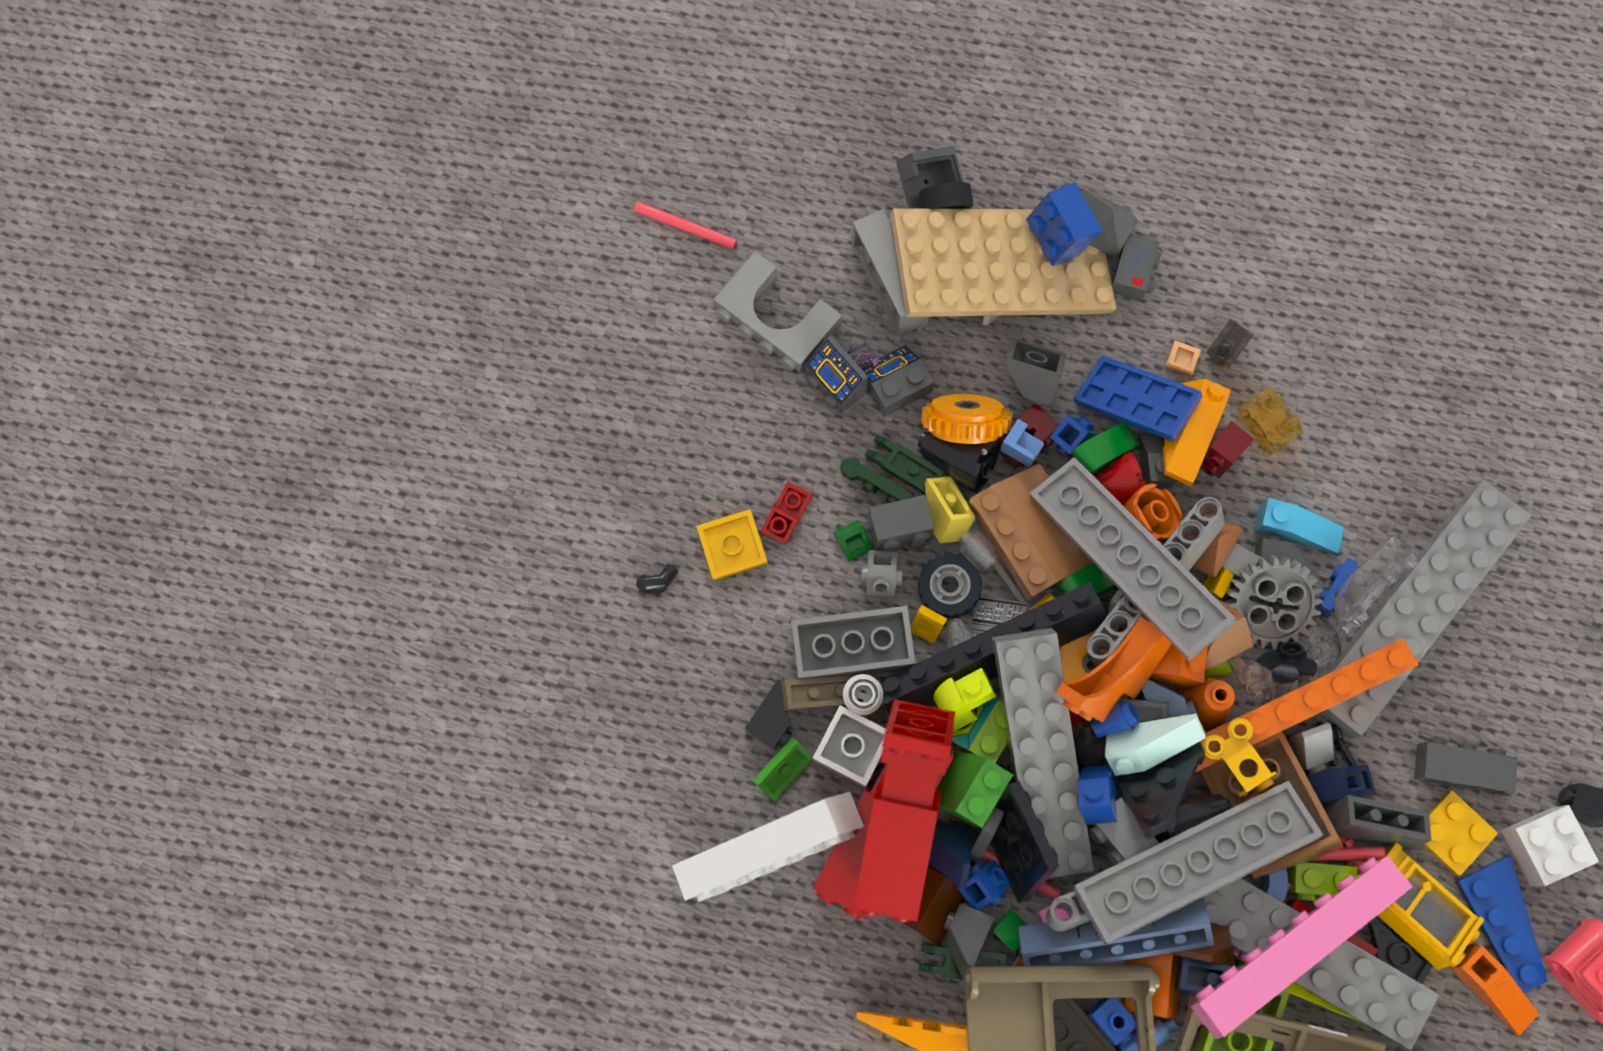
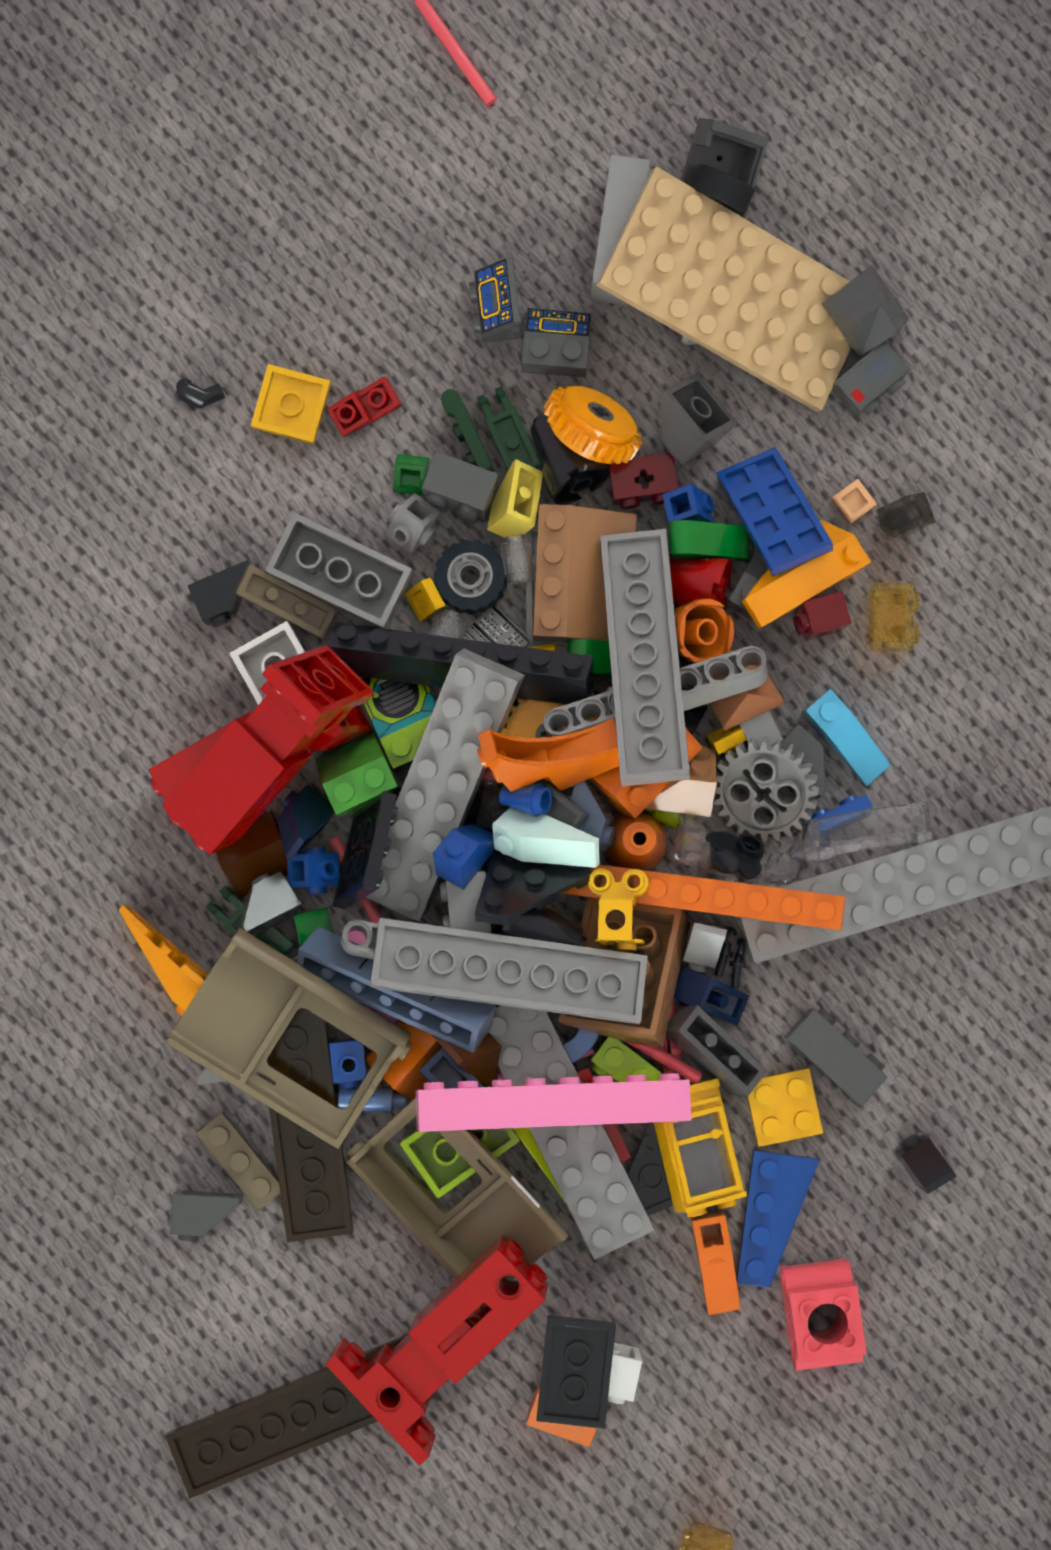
camera: 30 degrees right, 10 degrees up
(769, 847) = (130, 706): white brick -> none
(783, 769) = (200, 646): bright green plate -> none
(792, 345) = (454, 165): light grey arch -> none
(864, 357) = (535, 299): clear purple tile -> none
(871, 698) = (308, 616): white cone -> none
(964, 696) = (402, 686): neon yellow brick -> none
(985, 835) = (341, 825): dark grey tile -> none
(1021, 444) = (628, 484): medium blue panel -> none
(1063, 224) = (816, 290): blue brick -> none
(1549, 846) = (860, 1174): white brick -> none

